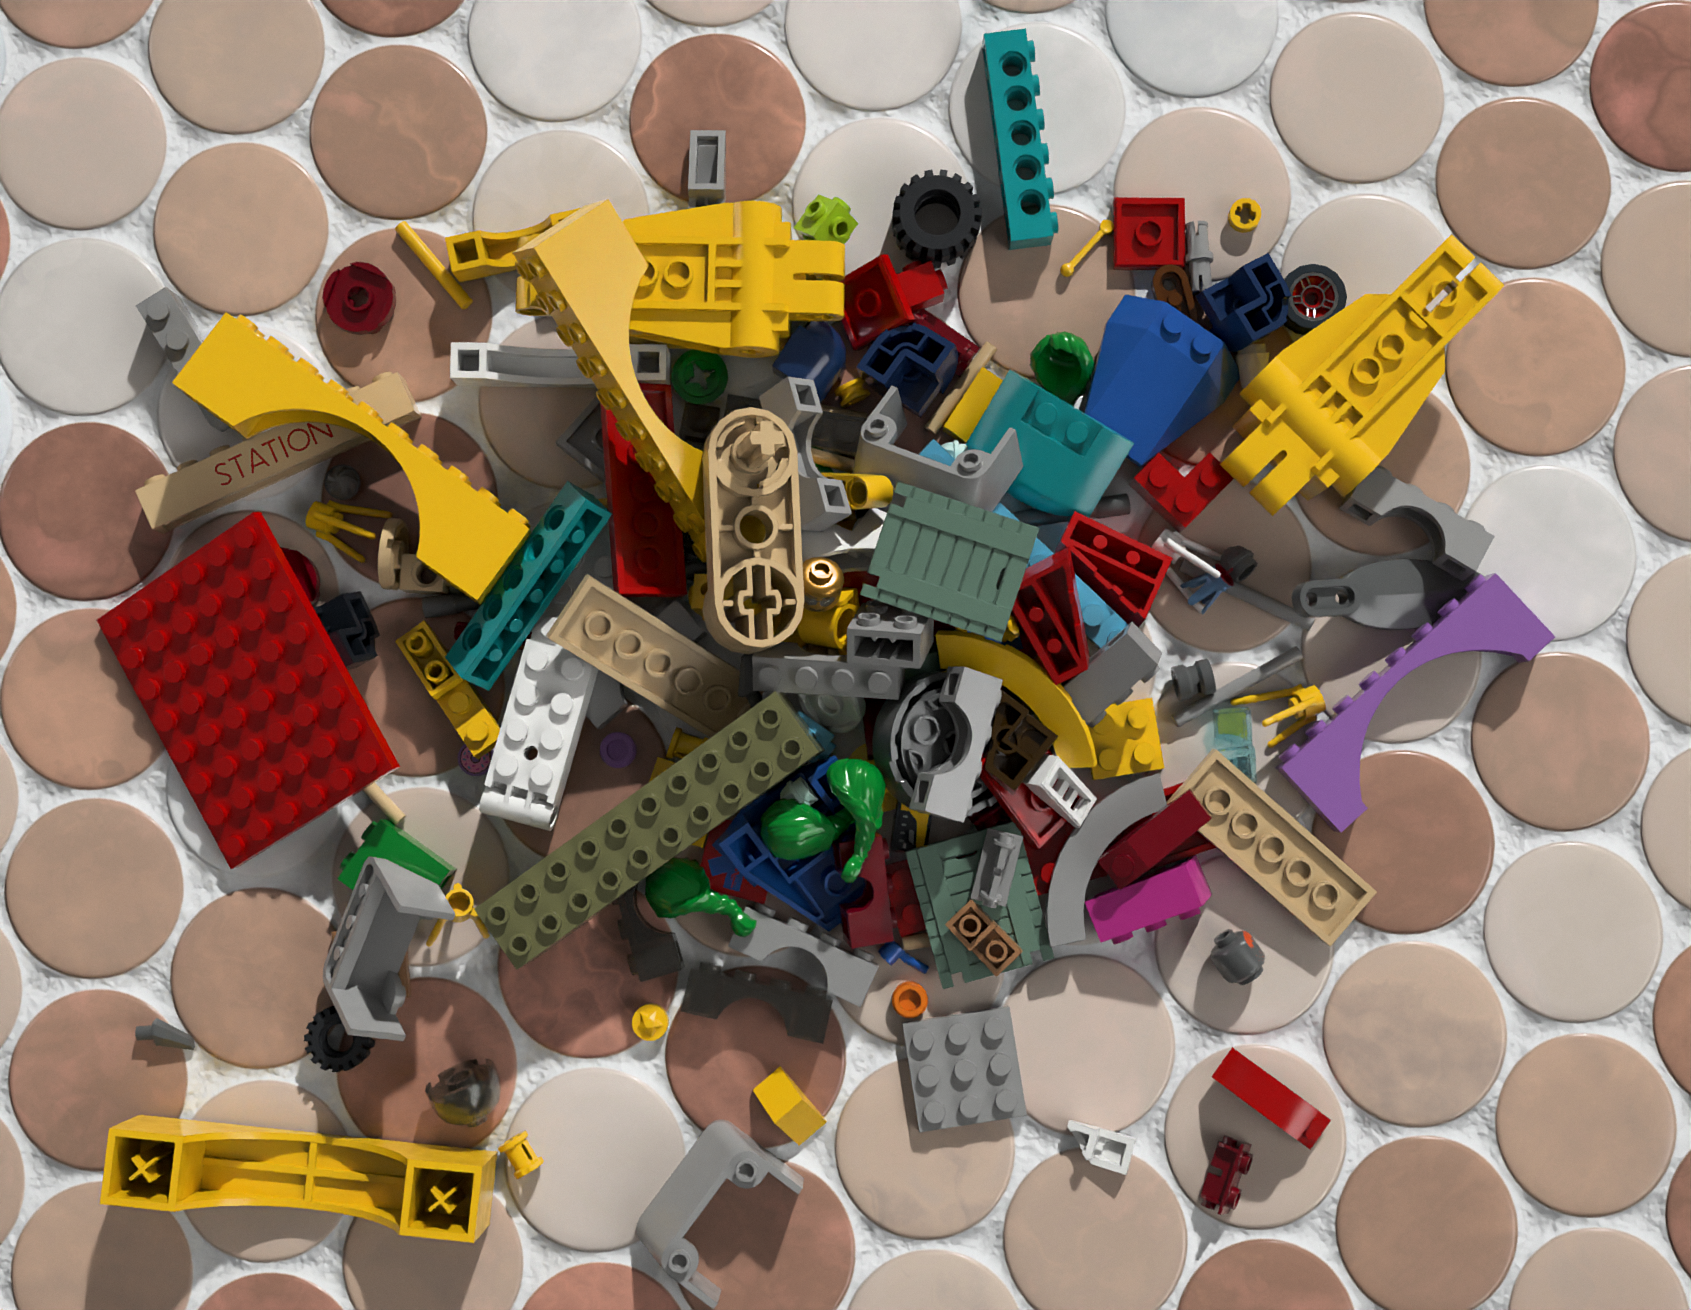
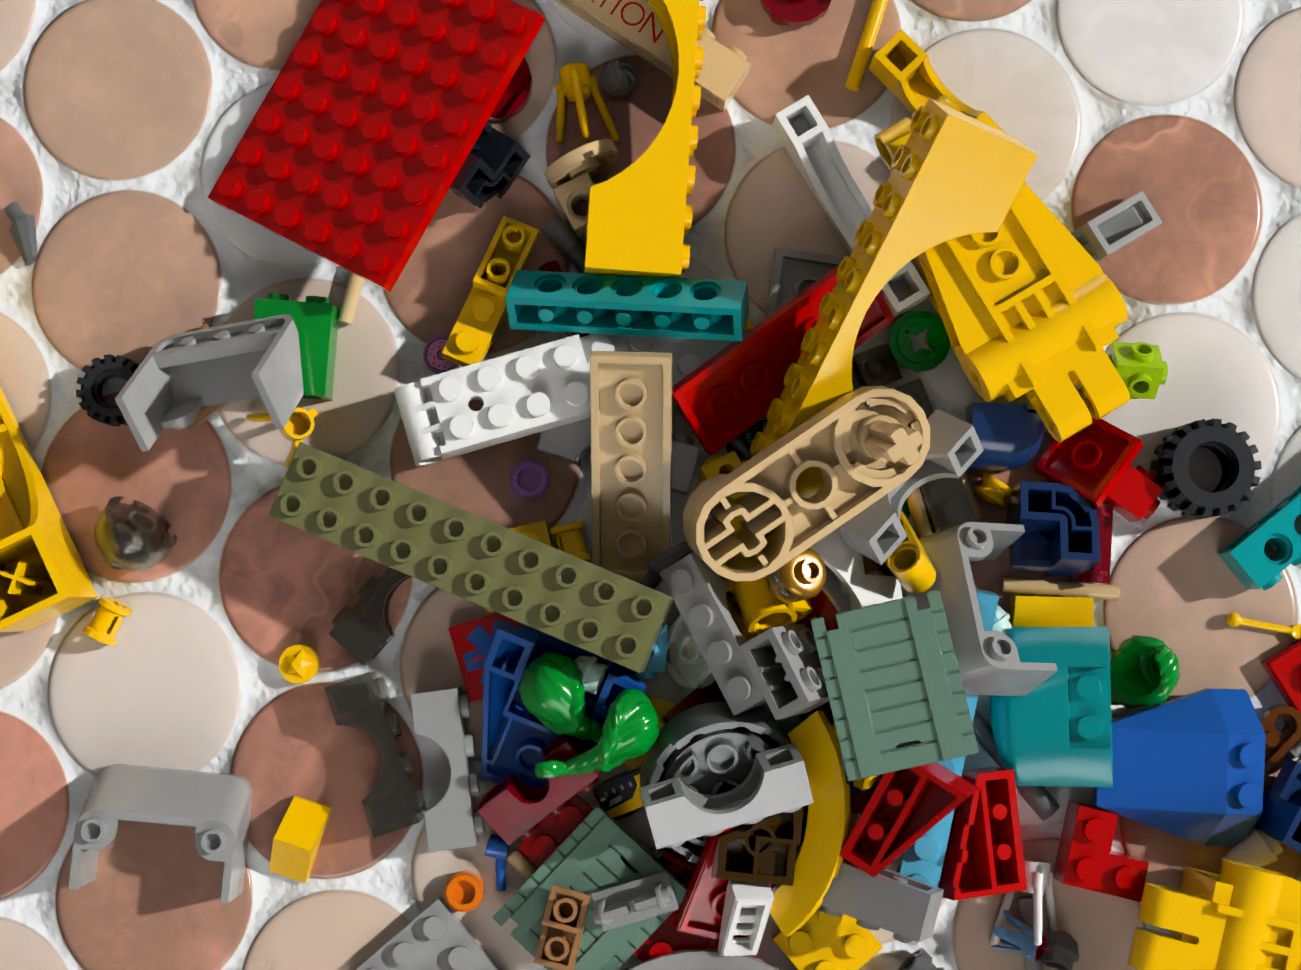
camera: 55 degrees right, 0 degrees up
(684, 888) = (438, 623): green hair -> none

